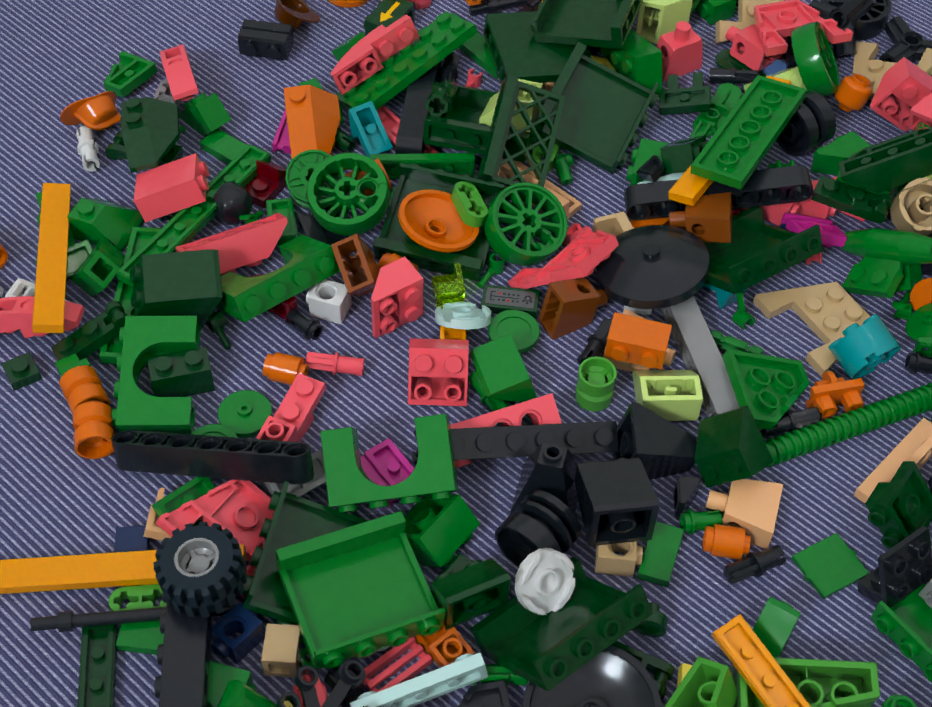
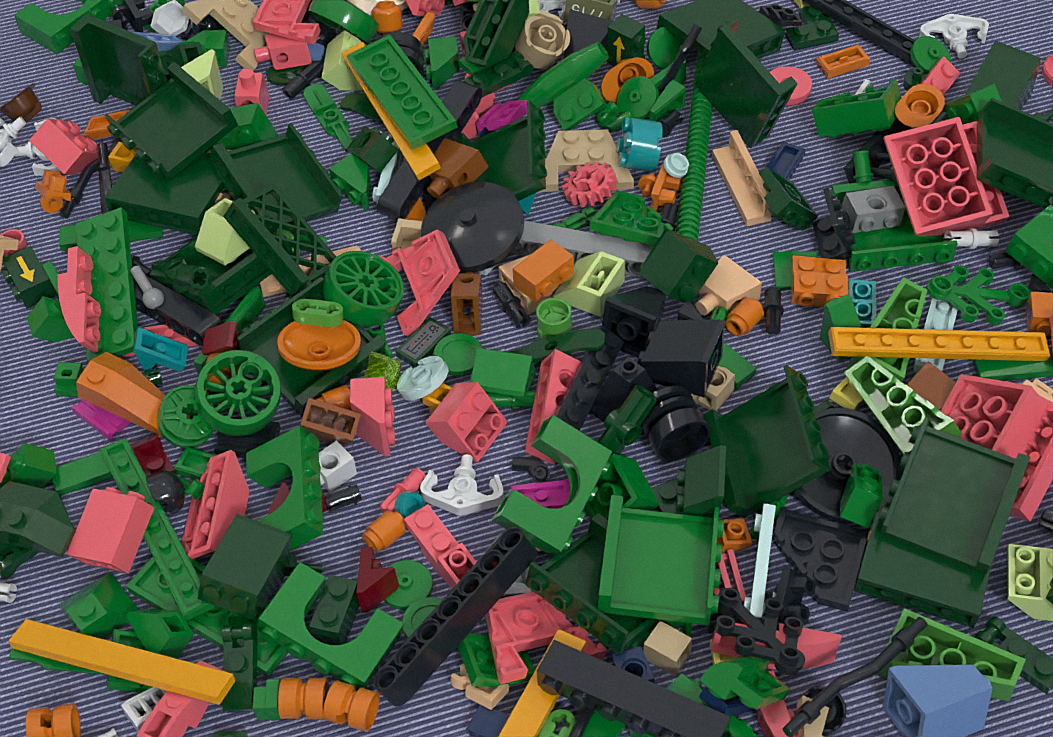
camera: 55 degrees left, 0 degrees up
(200, 569) = (592, 651): black wheel -> none
(223, 382) = (374, 581): none -> dark red slope
(324, 371) = (408, 503): none -> teal tile
(361, 408) = (462, 491): none -> white piece
(391, 158) = (220, 338): none -> dark red slope
(412, 94) = (152, 296): none -> light grey bar
(473, 80) = (154, 253): coral hand -> none
(501, 489) = (624, 423): none -> dark green piece
(544, 581) = (722, 433): white tile -> none
(569, 399) = (567, 343): none -> dark green piece
(651, 169) = (373, 178): black tile -> none
(685, 100) = (307, 118): dark green plate -> none
(741, 316) = (550, 203): green hand -> none
(788, 335) = (589, 184): none -> coral gear
(825, 591) = (817, 280): none -> orange plate
(835, 644) = (864, 299): none -> teal slope
(862, 125) = (425, 27): none -> orange tile
(862, 389) = (676, 165): none -> light aqua plate
(887, 315) = (611, 122): none -> green arm

